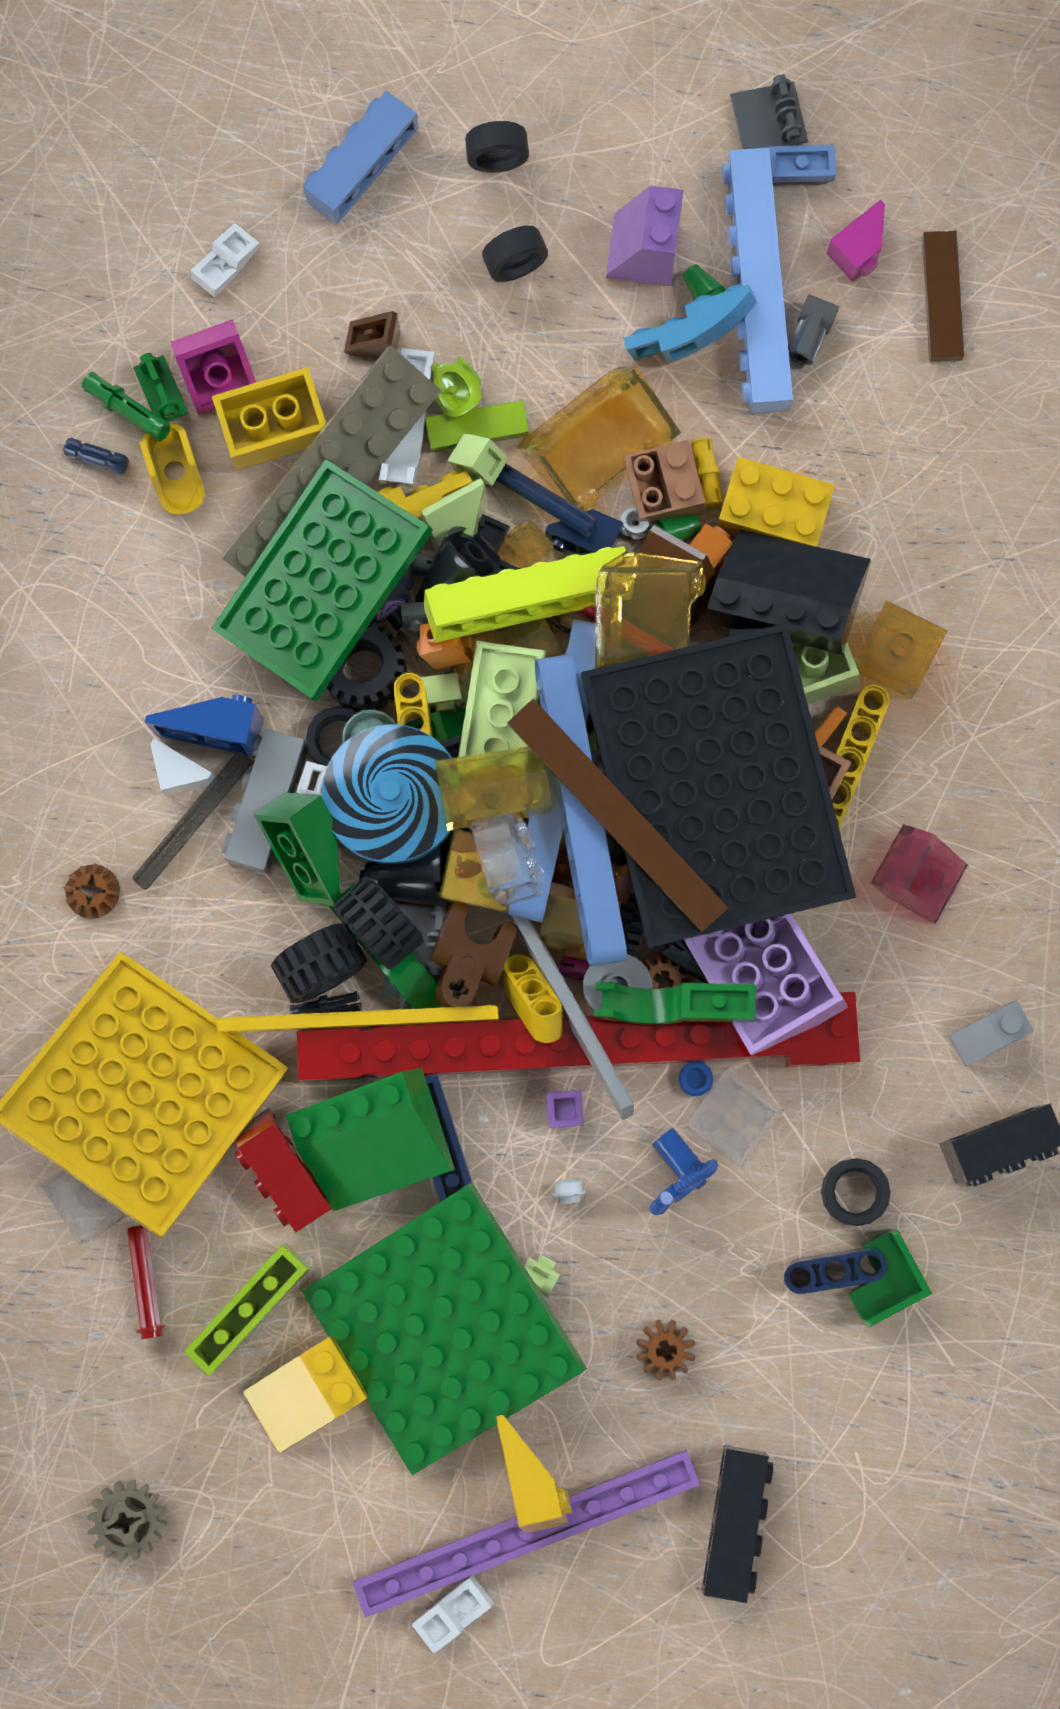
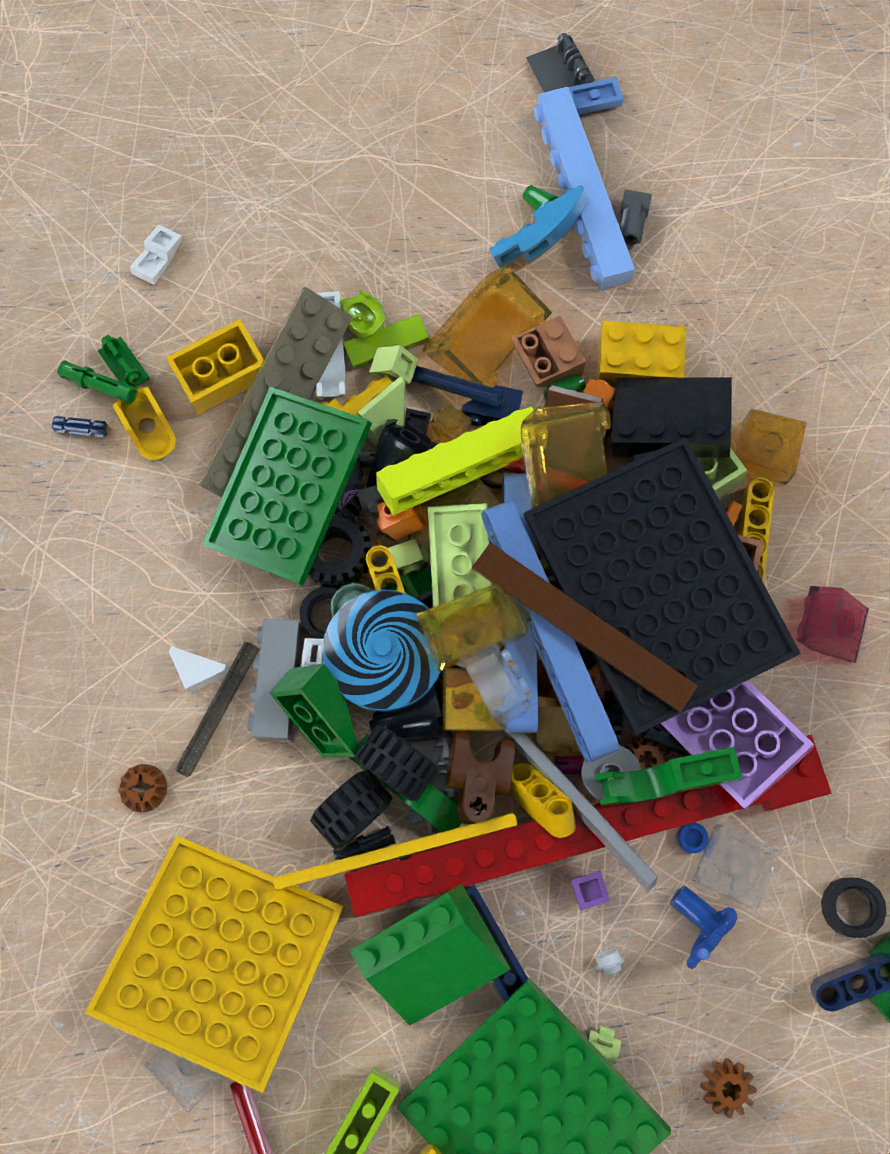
camera: 15 degrees left, 5 degrees down
(212, 363) = (161, 333): dark pink slope -> none
(214, 723) = (218, 623): blue slope -> none
(281, 1172) = (356, 1003): red wedge -> none
(360, 157) = (249, 156): medium blue brick -> none
(372, 335) = (286, 287): reddish brown slope -> none
(497, 146) = (354, 114): black tyre -> none
(515, 253) = (387, 202): black tyre -> none
(636, 532) = (534, 398): white plate -> none
(646, 237) = (489, 169): medium lavender slope -> none
(707, 471) = (580, 337): yellow pin -> none
(859, 243) = (654, 145): dark pink slope -> none
(942, 296) = (727, 173): reddish brown tile -> none

